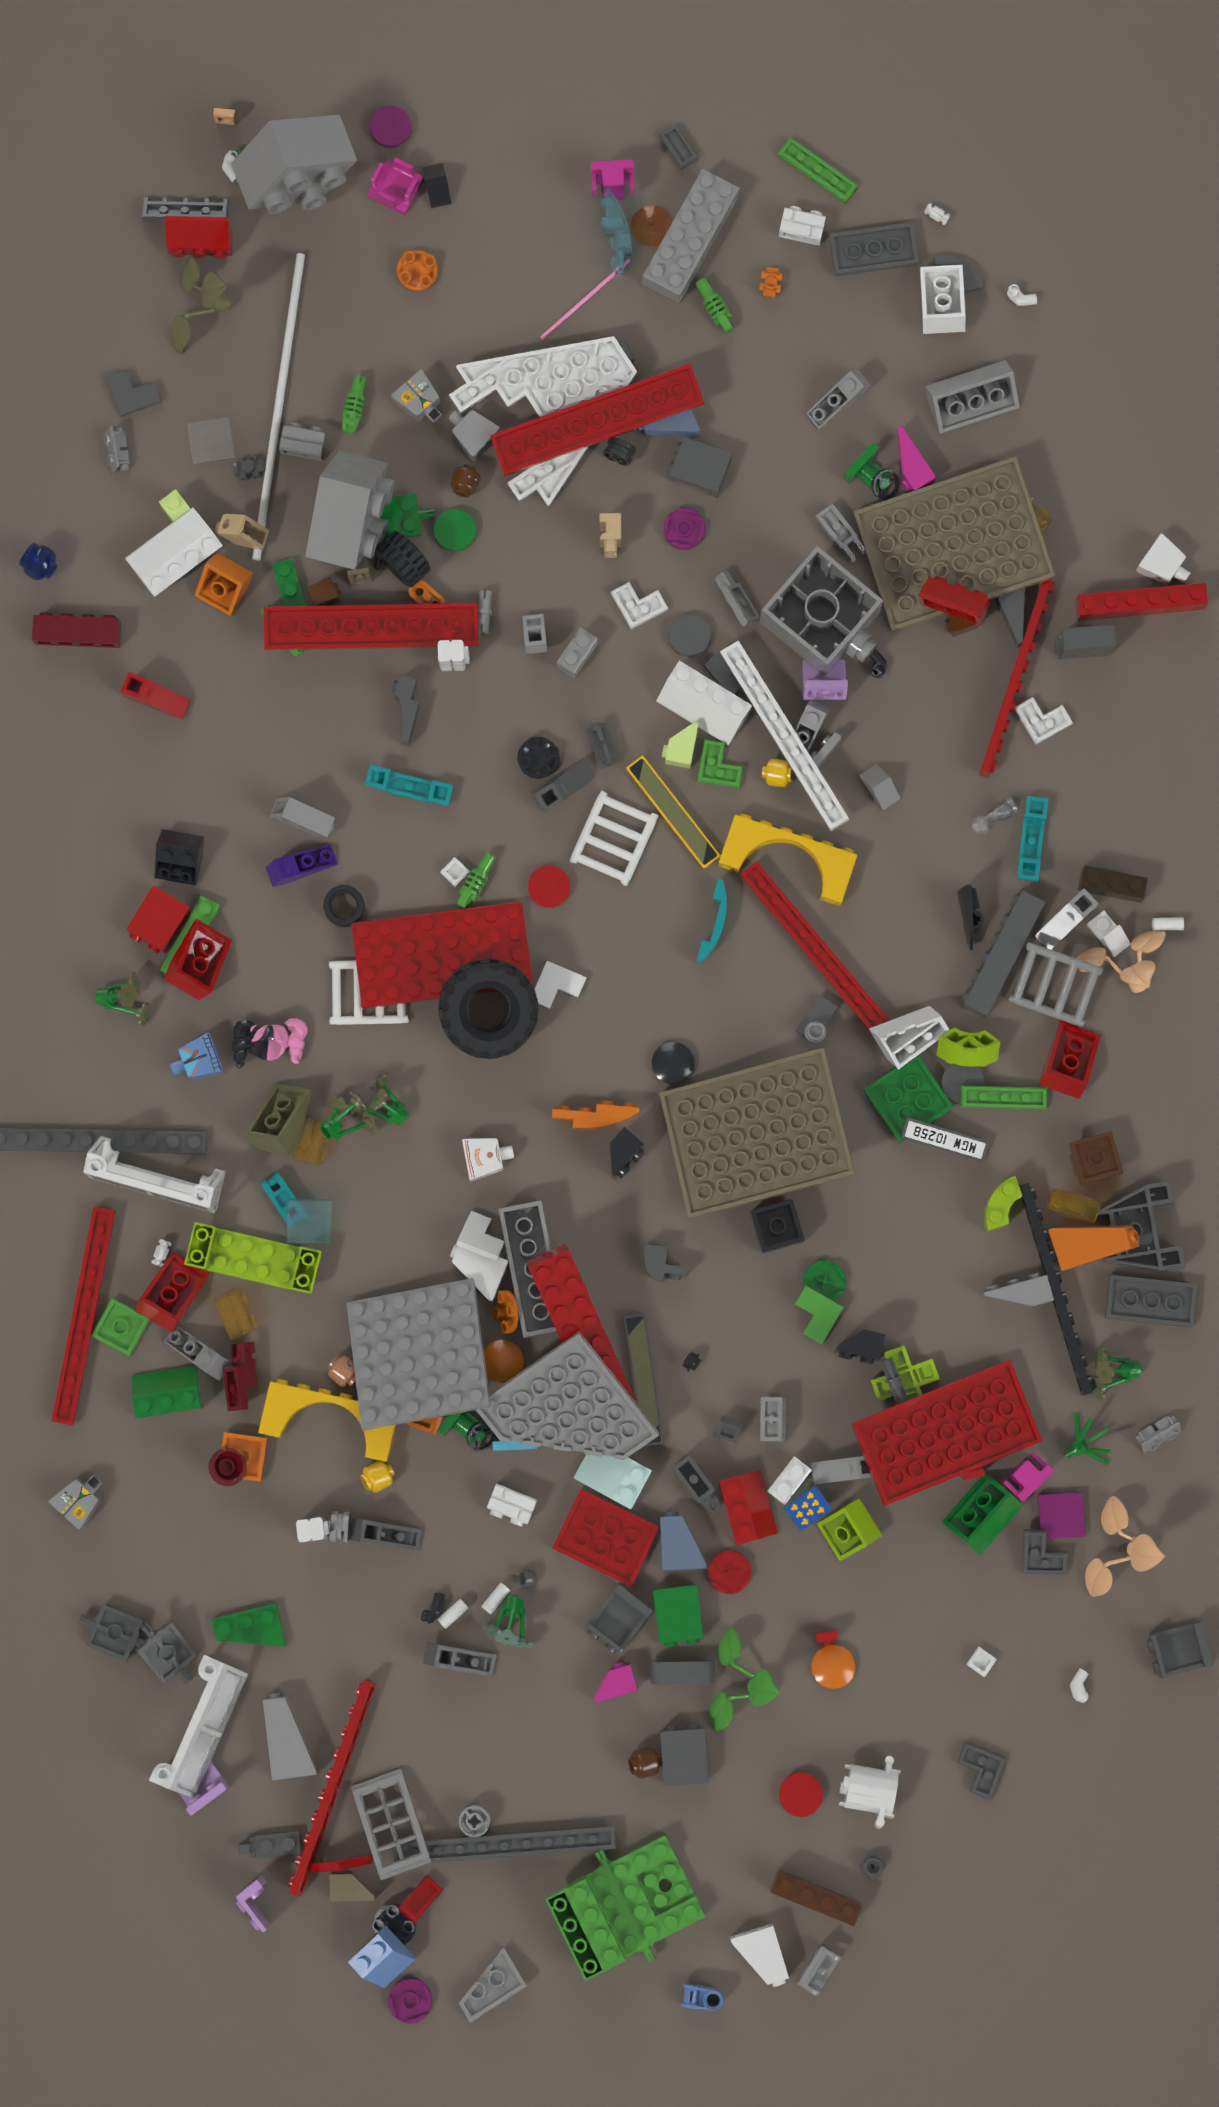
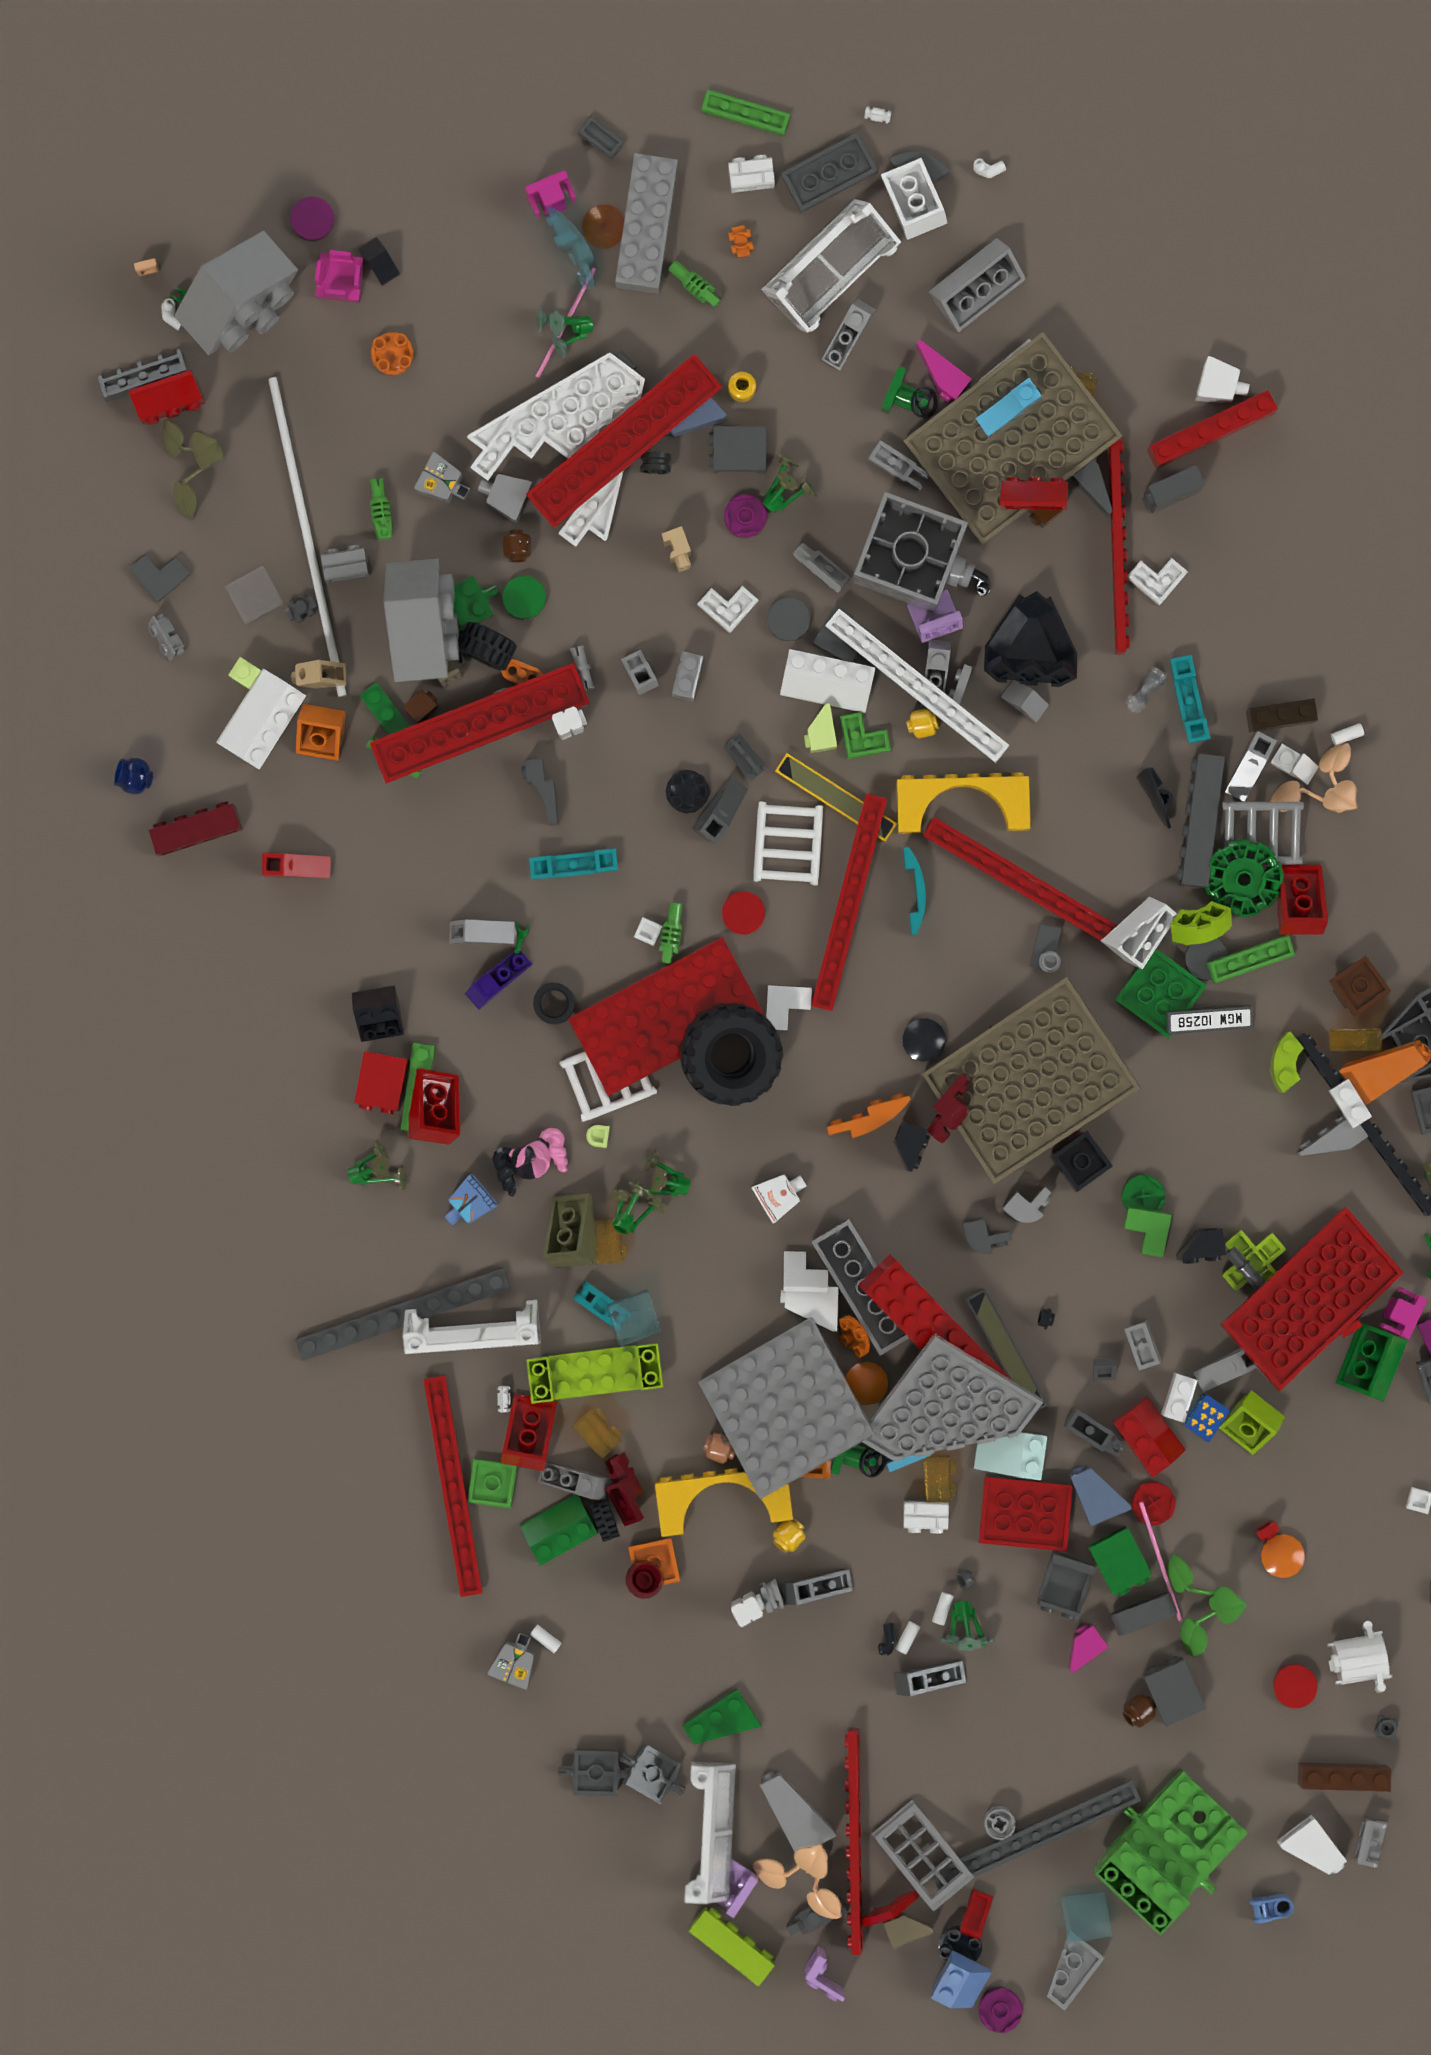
camera: 20 degrees left, 5 degrees up
(115, 1490) = (545, 1638): none -> white axle
(180, 1843) = (732, 1946): none -> lime brick
(211, 1398) = (605, 1520): none -> black tyre
(285, 1789) = (814, 1861): none -> light nougat plant
(337, 832) = (521, 934): none -> green hand
(339, 1042) = (598, 1135): none -> yellowish green tile
(523, 1941) = (1086, 1917): none -> clear light blue tile
(536, 1474) = (938, 1478): none -> clear yellow brick
(596, 304) = (579, 324): none -> plant
(649, 911) = (849, 902): none -> red plate
(673, 1132) = (951, 1110): none -> dark red plate
(708, 1255) = (1026, 1212): none -> light grey brick
(716, 522) = (774, 498): none -> plant
(716, 1625) = (1159, 1558): none -> bright pink axle
(719, 407) = (745, 393): none -> yellow head
(845, 331) = (831, 264): none -> clear windscreen
(903, 737) = (1031, 645): none -> black panel
(960, 513) = (1009, 407): none -> medium azure slope
(1033, 1011) = (1248, 865): none -> green plate
(1047, 1263) = (1350, 1103): none -> white plate

